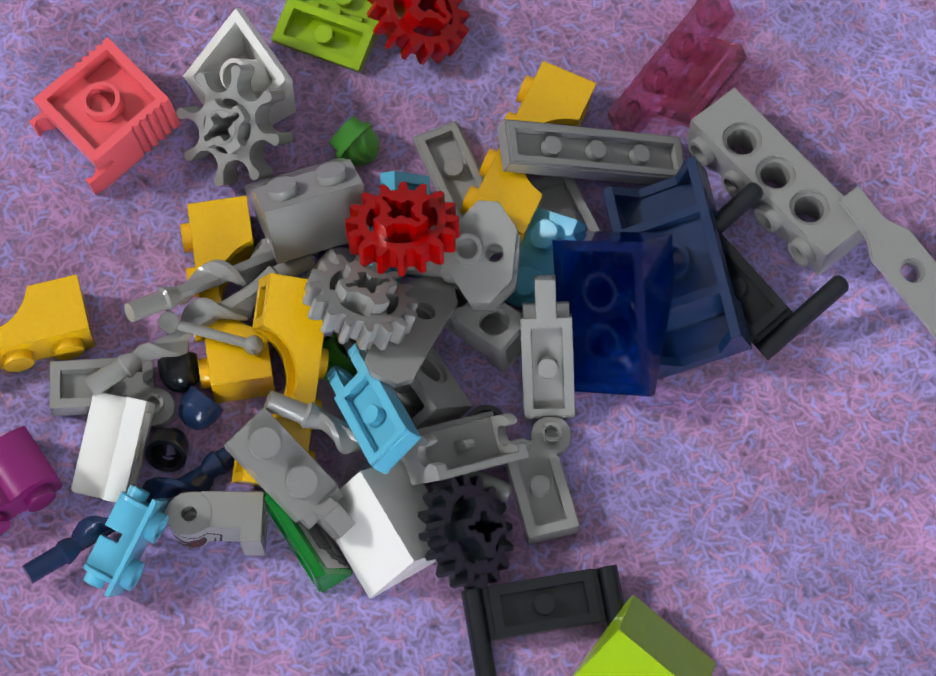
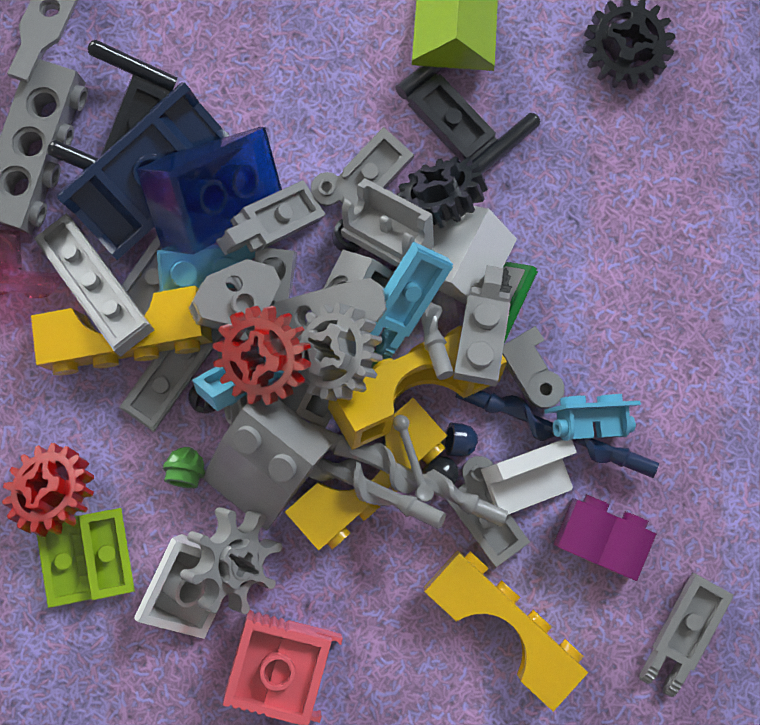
camera: 115 degrees left, 20 degrees up
(158, 447) = (500, 447): black hinge -> none

